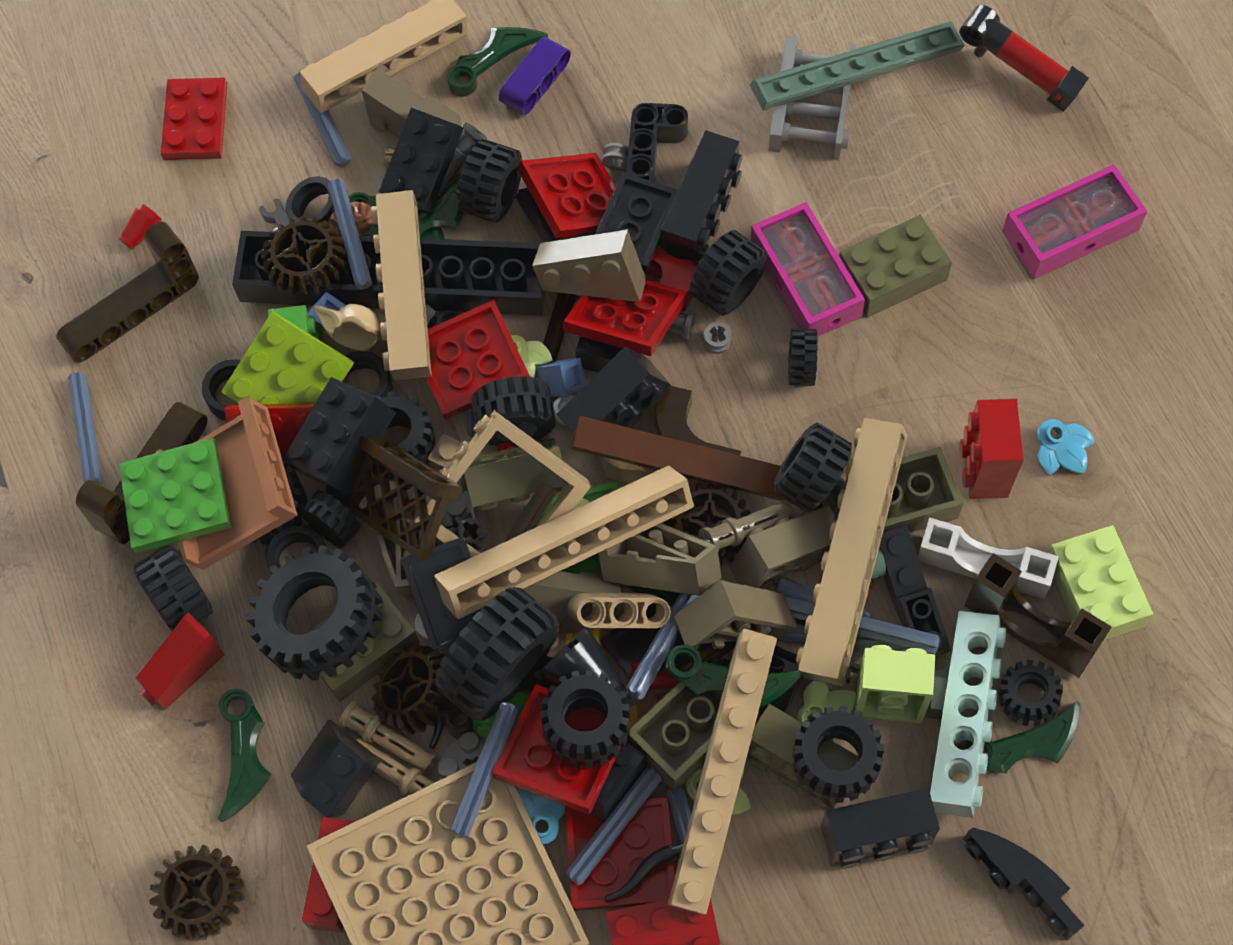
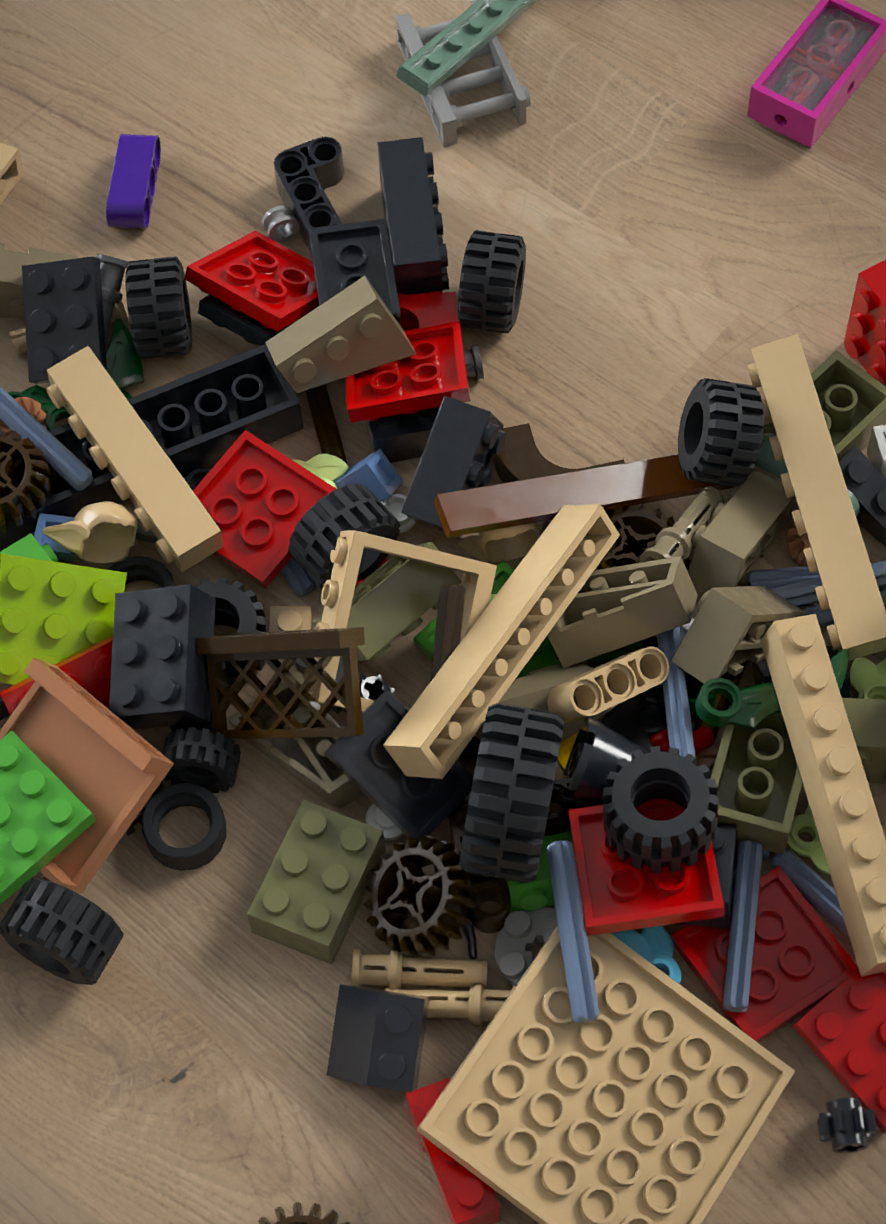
camera: 30 degrees left, 5 degrees down
(178, 663) = (116, 1014): red slope -> none
(247, 772) = (273, 1101): dark green piece -> none
(333, 641) = (293, 900): black tyre -> none
(500, 44) = (70, 169): dark green piece -> none
(655, 860) = (813, 936): black animal -> none
(717, 347) = (514, 349): light grey bush -> none
(802, 357) = (626, 332): black tyre -> none
(808, 270) = (577, 244): brick -> none
(896, 264) = (659, 198): olive brick -> none

